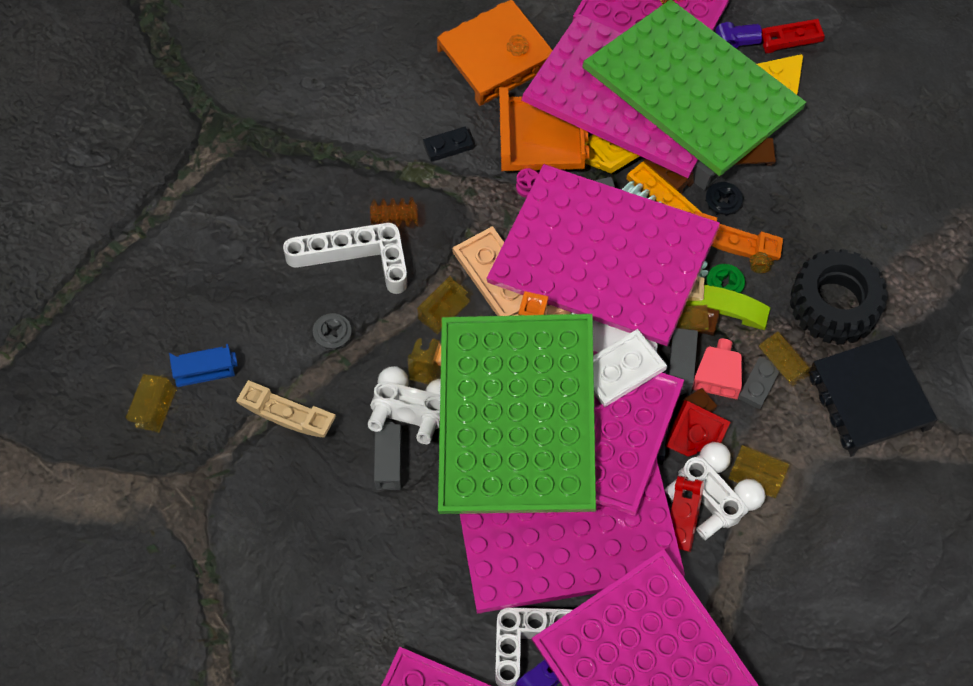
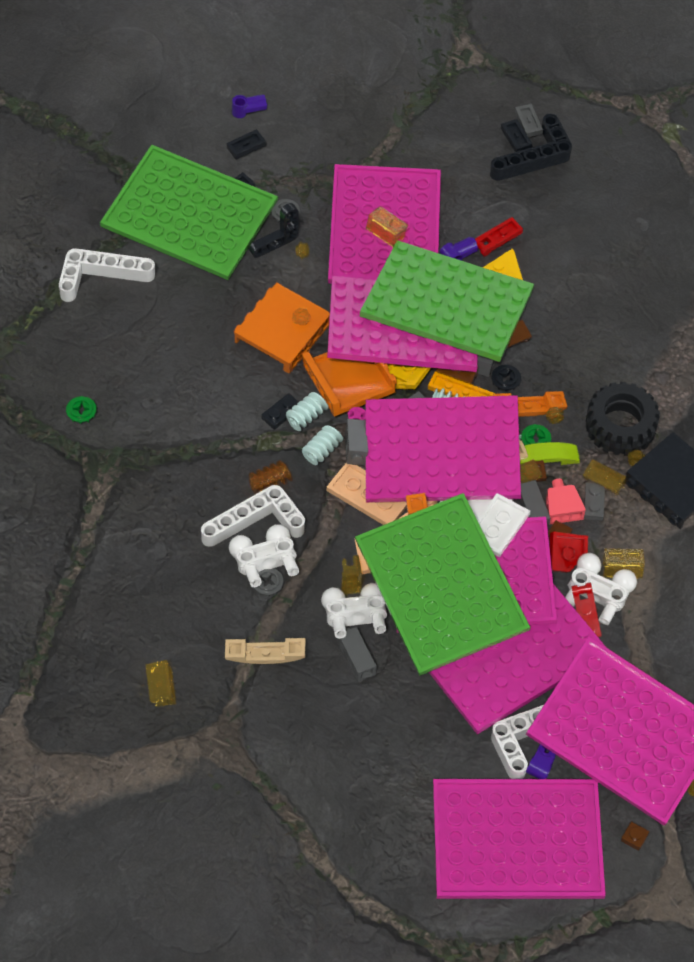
camera: 25 degrees left, 5 degrees down
(203, 366) = (185, 642): blue window -> none
(228, 57) = (74, 406): none -> green gear
(348, 301) = (273, 553): none -> white piece
(443, 302) = (340, 531): clear yellow hinge -> none
(472, 196) = (322, 444): none -> light aqua piece
(474, 152) = (305, 410): none -> light aqua piece
(509, 208) = (356, 442): none -> dark grey brick
(834, 347) = (635, 456): none -> clear yellow plate

